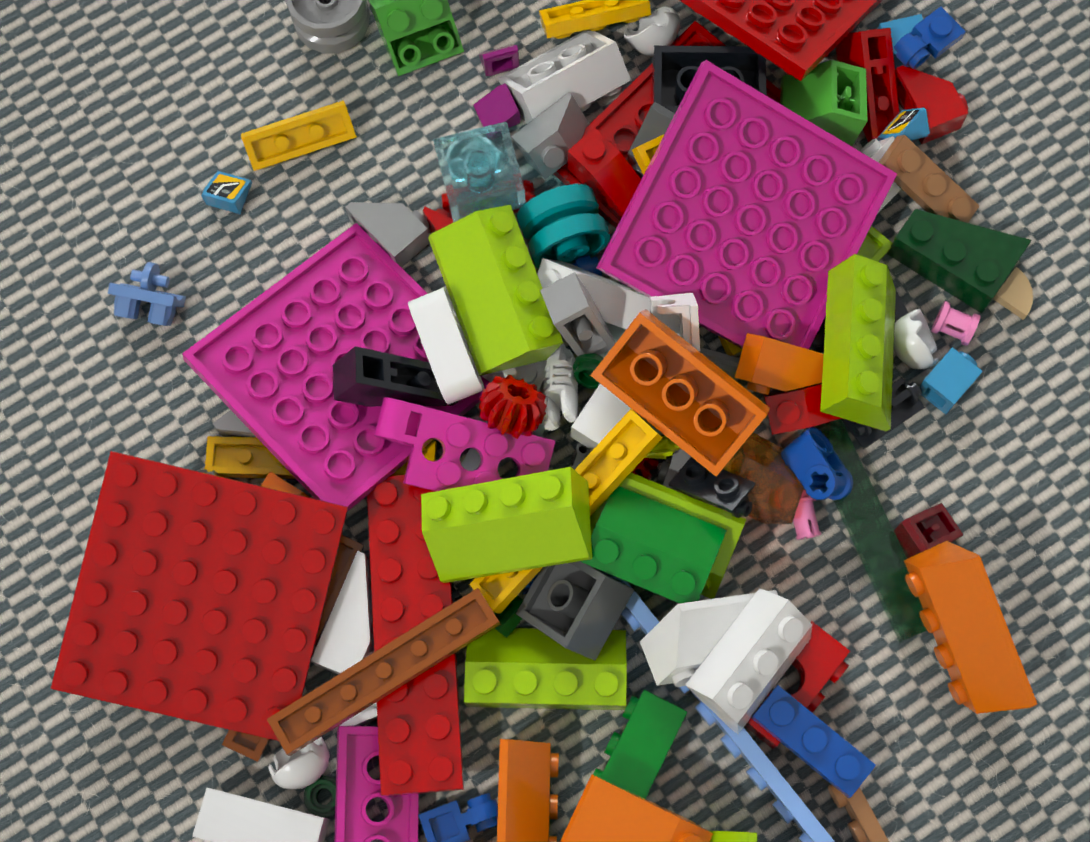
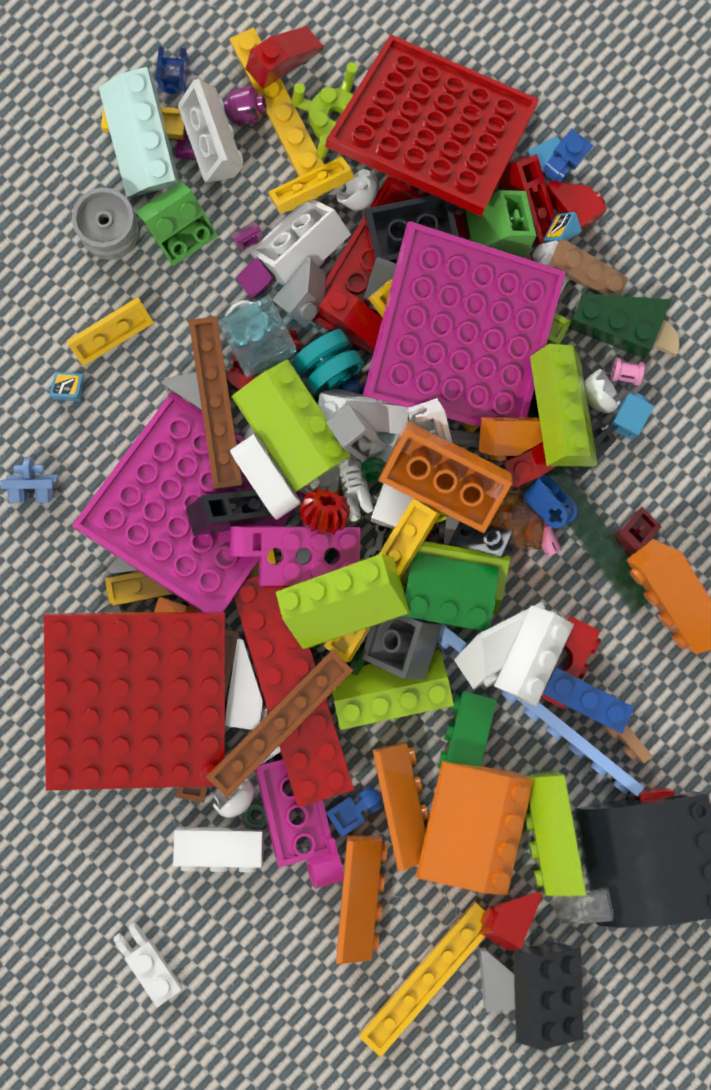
camera: 20 degrees left, 10 degrees up
(405, 243) = (215, 402): none -> dark orange plate

